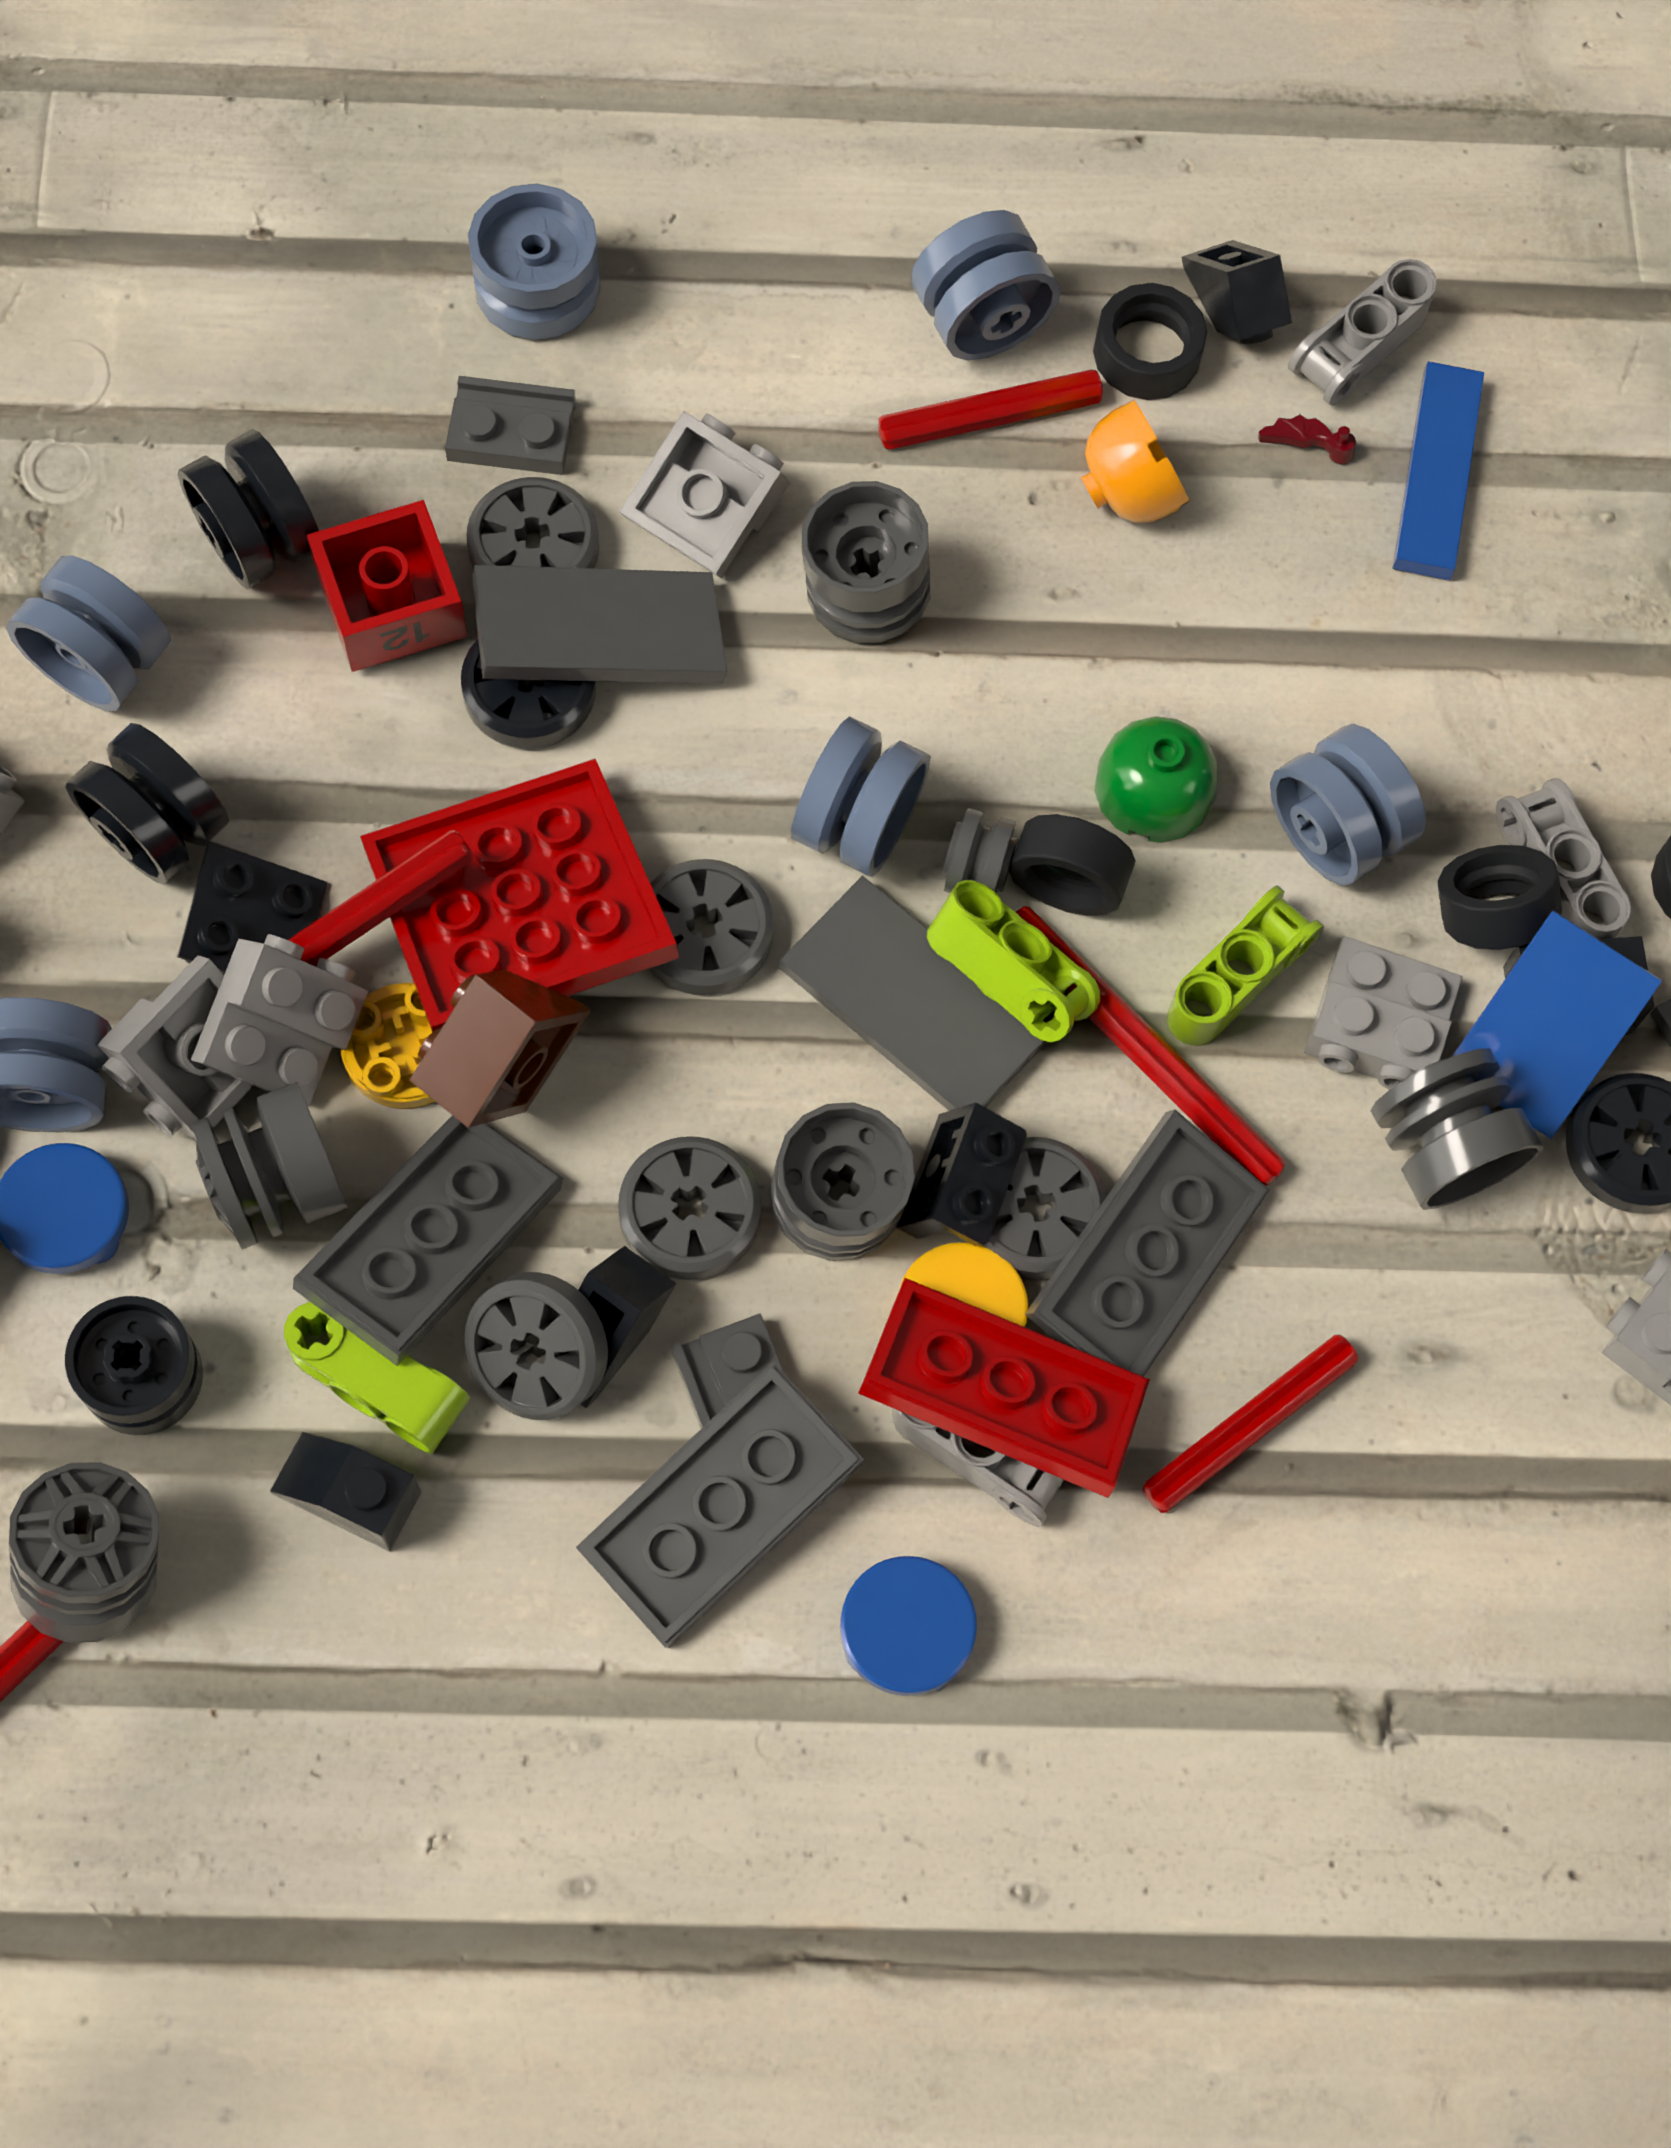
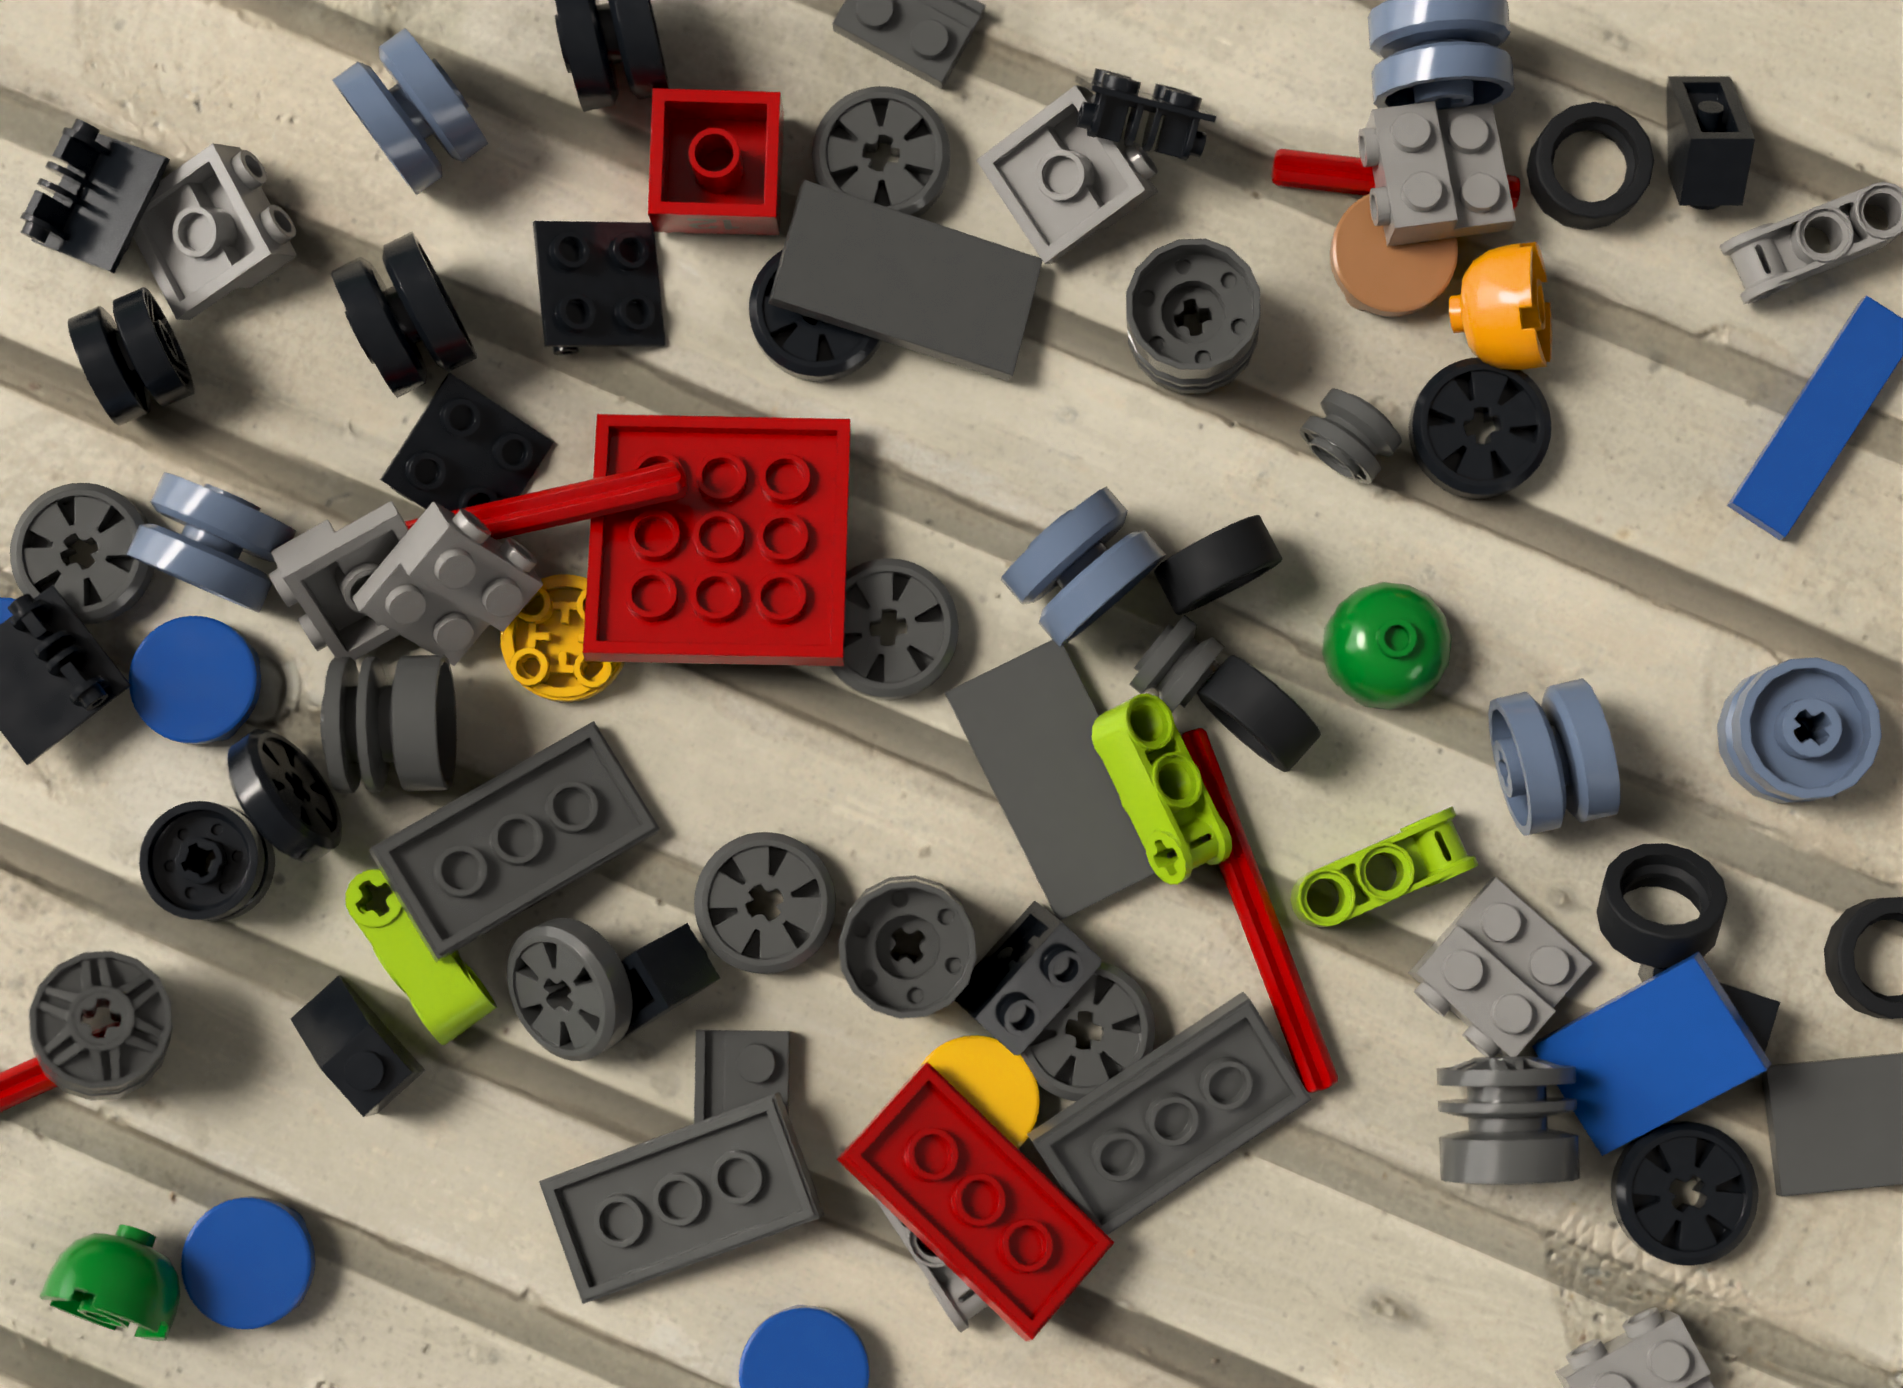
camera: 25 degrees right, 15 degrees up
(188, 1807) = (116, 1283): none -> green cylinder
(189, 1268) = (284, 795): none -> black wheel
(314, 1739) = (248, 1262): none -> blue tile
(316, 730) = (598, 285): none -> black hinge
(496, 1046) = (634, 696): reddish brown slope -> none
(779, 403) = (1119, 92): none -> black hinge
(979, 755) = (1217, 564): none -> black tyre
(1015, 464) = (1385, 278): none -> medium nougat tile
(1023, 382) = (1436, 172): none -> light grey plate
(1047, 614) = (1350, 436): none -> dark grey wheel
(1143, 606) = (1508, 453): none -> black wheel
(1250, 1423) = (1195, 1311): red axle -> none
(1308, 432) = (1706, 325): dark red piece -> none
(1544, 713) = (1836, 725): none -> sand blue wheel
(1553, 824) = (1758, 857): light grey piece -> none

